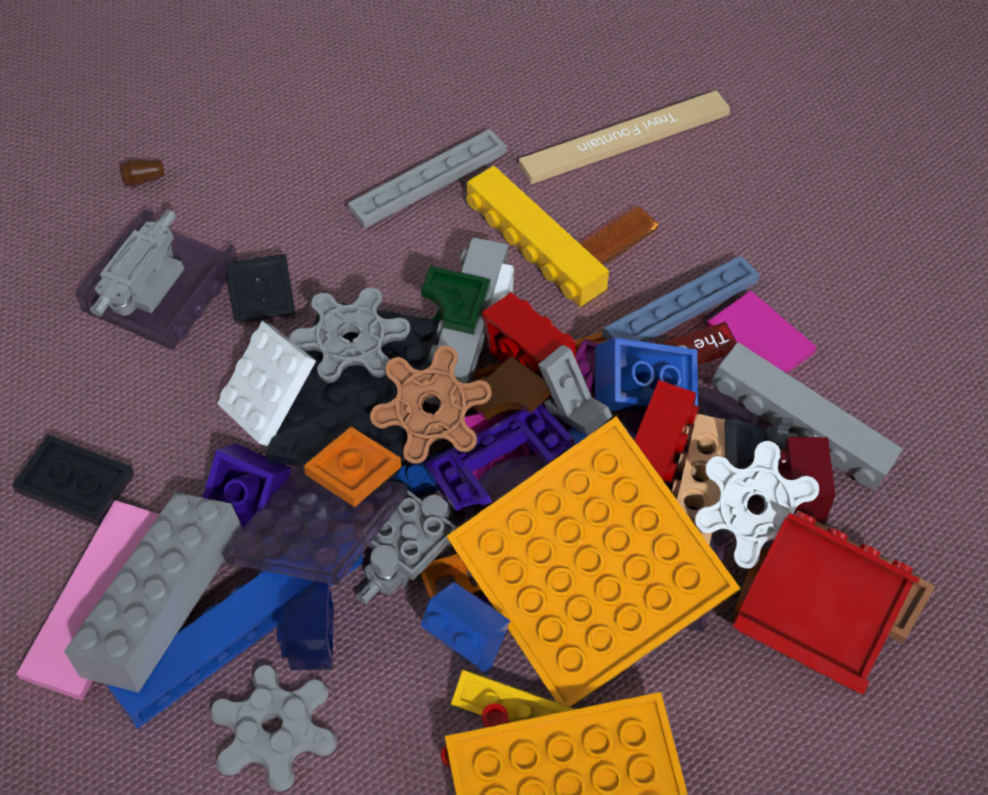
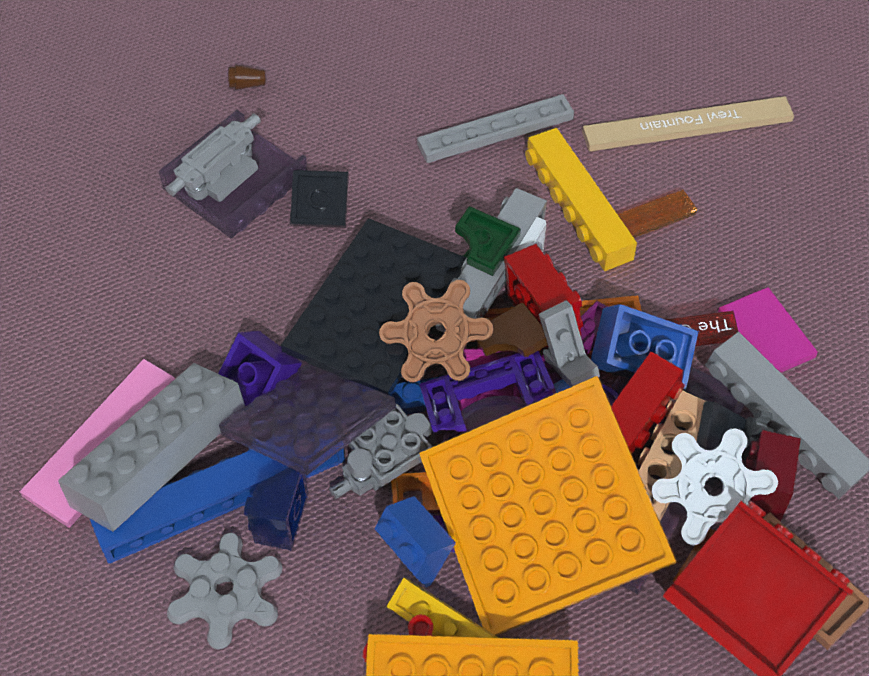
camera: 15 degrees right, 0 degrees up
(73, 479) = (114, 333): black plate -> none
(265, 383) = (297, 282): white plate -> none
(352, 466) = (350, 372): orange plate -> none
(358, 318) = (375, 239): light grey plate -> none
(684, 302) = (701, 285): sand blue plate -> none

